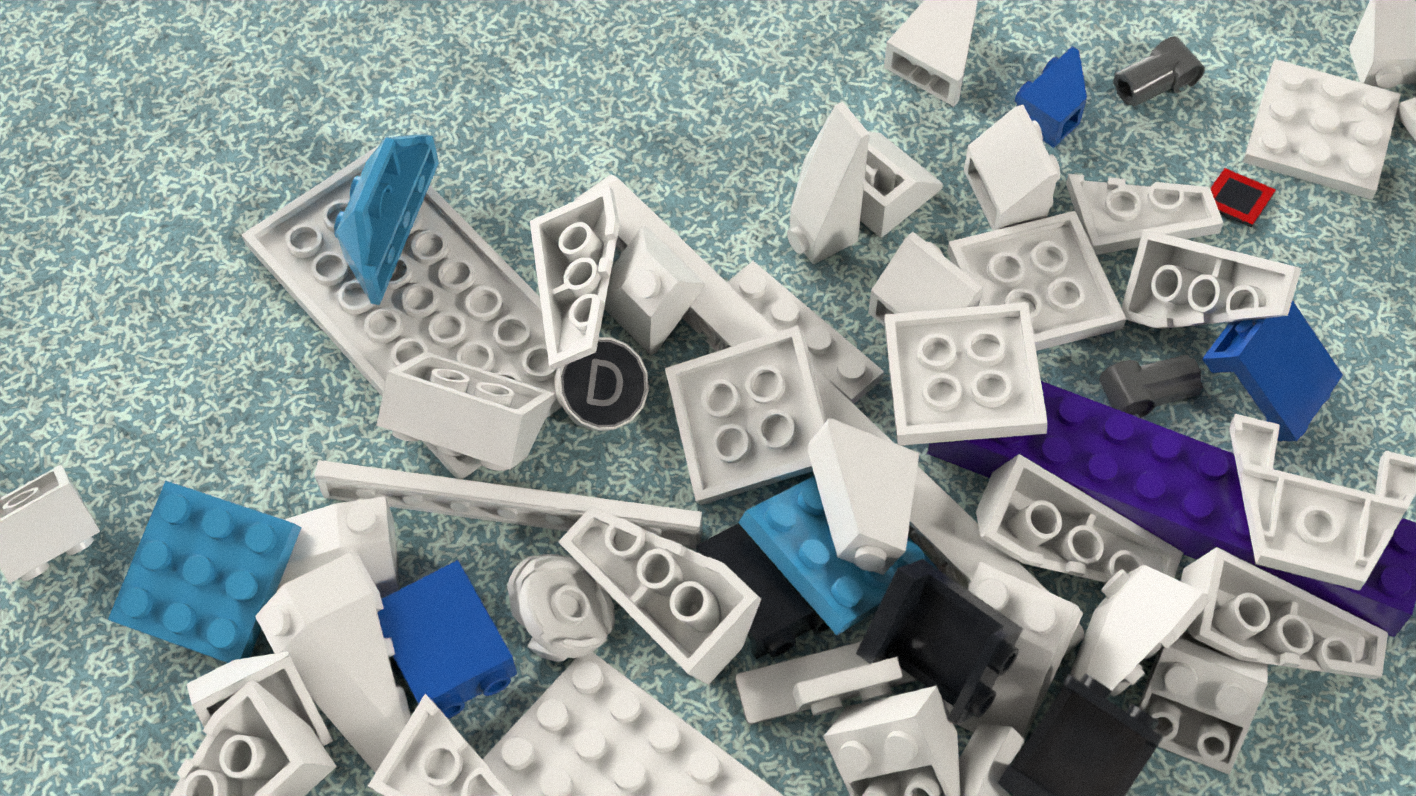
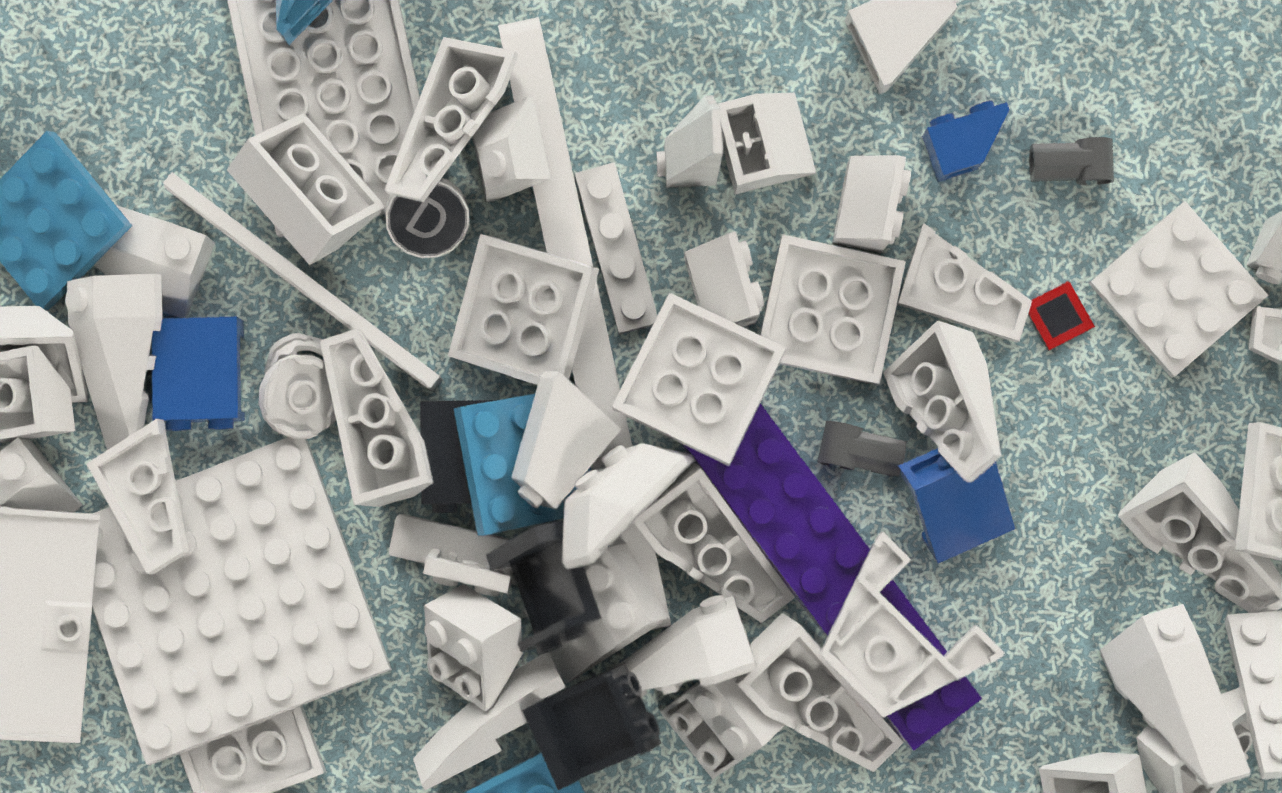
camera: 25 degrees right, 25 degrees up
(958, 509) = (615, 497): none -> white wedge

